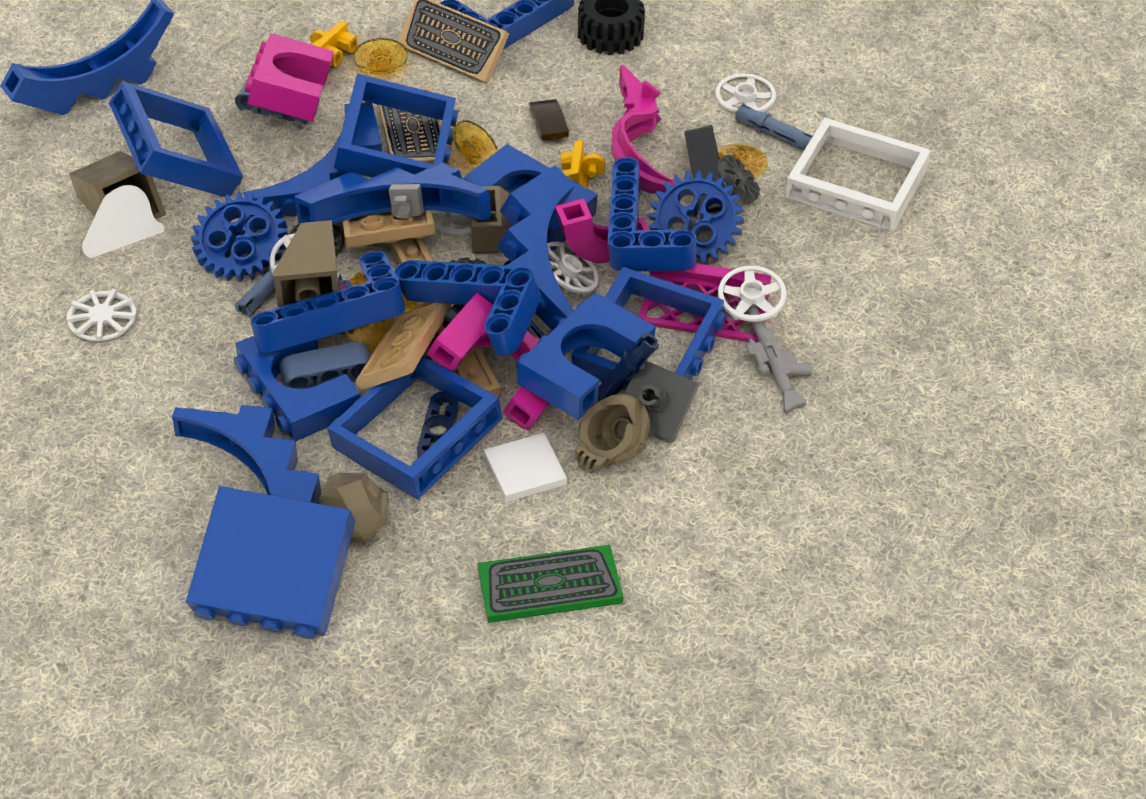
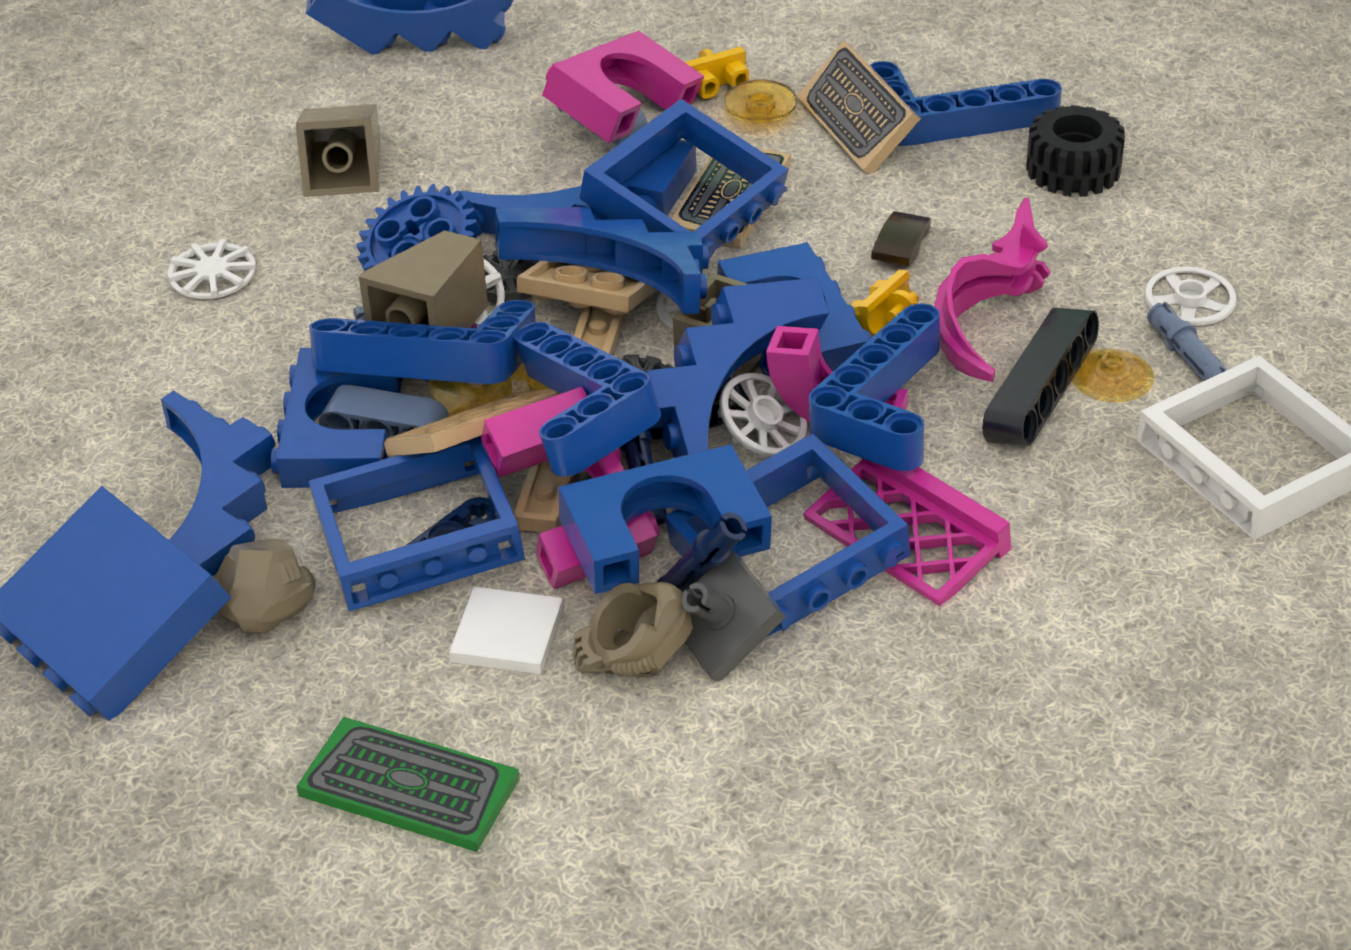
camera: 35 degrees right, 5 degrees down
(120, 221) = (312, 176): white sticker -> none
(133, 107) = (412, 142): blue window -> none
(406, 200) = (617, 259): light grey tile -> none
(473, 142) = (774, 225): clear yellow dish -> none
(721, 224) = (994, 435): blue gear -> none
(736, 175) = (1070, 386): dark grey wheel -> none
(752, 293) = (962, 534): white wheel -> none
(781, 363) = (942, 641): light grey piece -> none

